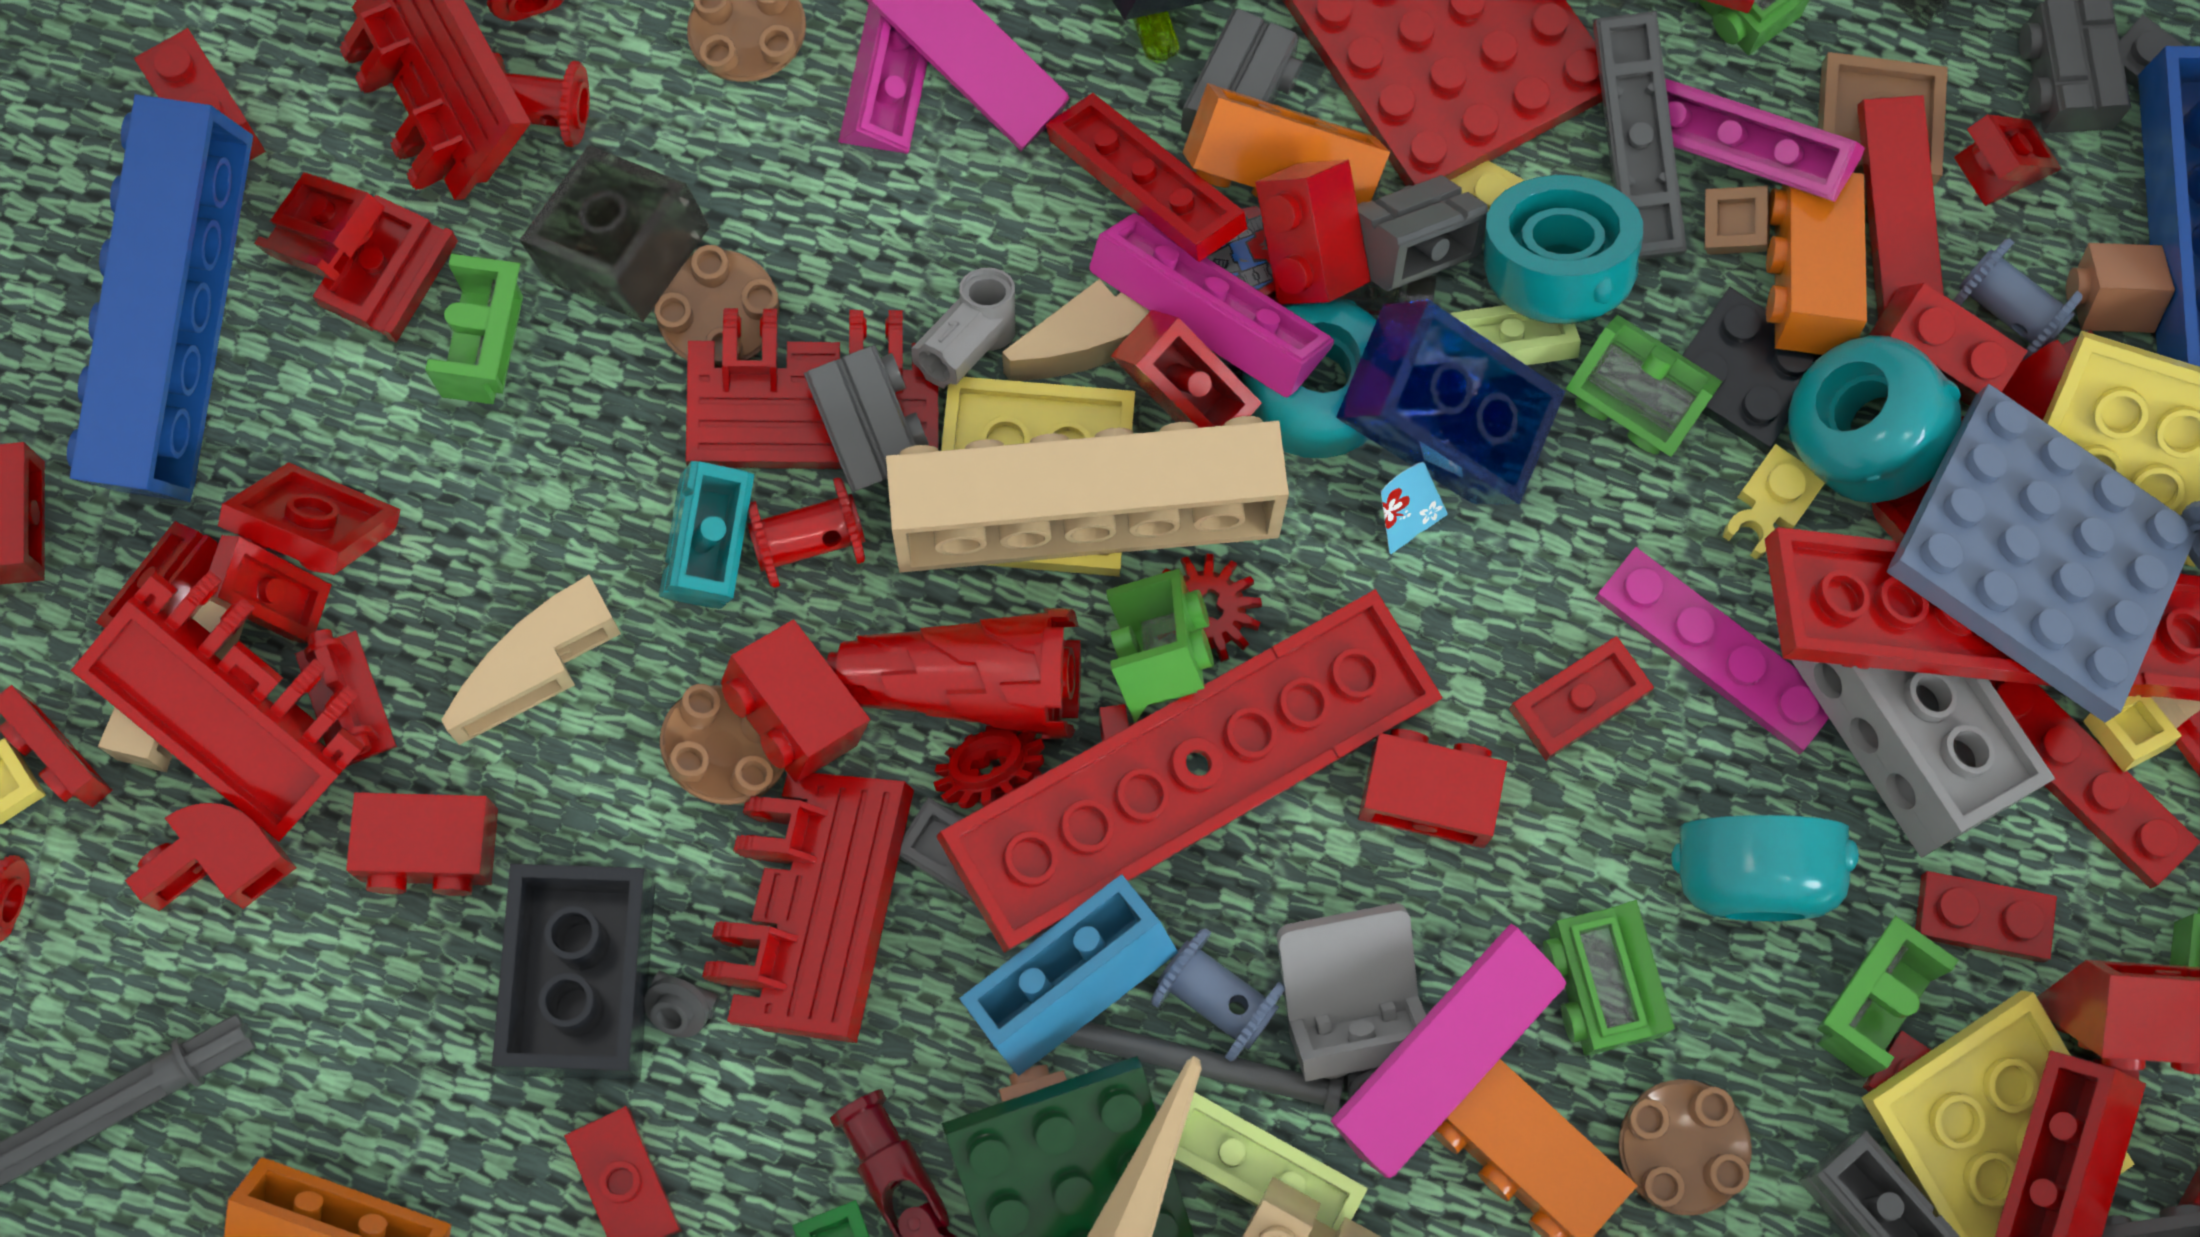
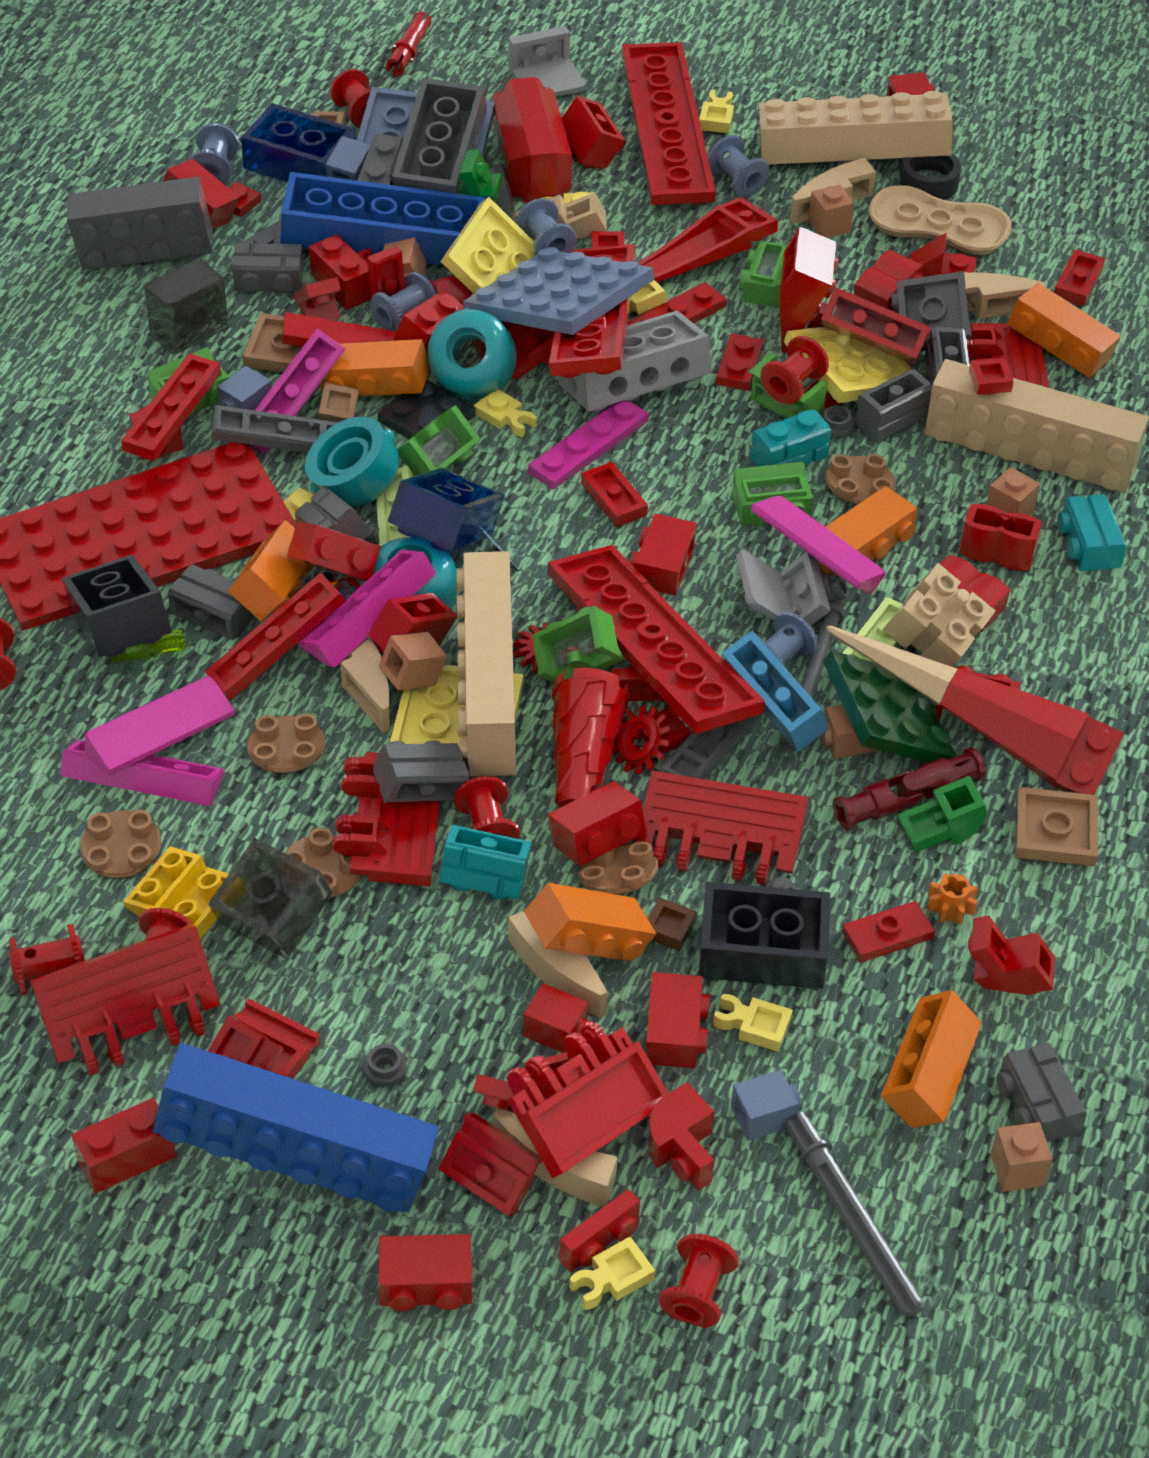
camera: 85 degrees left, 25 degrees down
(265, 983) = (764, 1104): none -> sand blue brick
(309, 518) = (453, 1070): red plate -> none
(344, 417) = (381, 1055): none -> dark grey plate
(421, 665) = (553, 1017): none -> red brick
(428, 975) = (759, 1023): none -> light yellow plate
(482, 330) = (326, 977): bright green window -> none
(556, 694) = (589, 922): none -> orange brick
(616, 828) = (671, 923): none -> reddish brown plate
(661, 116) = (180, 884): none -> yellow slope
(956, 227) = (286, 742): none -> medium nougat dish
(972, 326) = (359, 729): light grey piece -> none
(1097, 385) = (412, 660): none -> nougat brick
(1731, 62) = (244, 389): none -> sand blue brick
(1749, 1010) = (792, 440): none -> teal brick
(1765, 866) = (720, 418): teal piece -> none
(1819, 1112) = (839, 420): none -> dark grey plate
(1888, 995) = (785, 378): none -> red hose
(2057, 251) = (386, 272): none -> red plate
(2088, 190) = (337, 259): none -> red brick

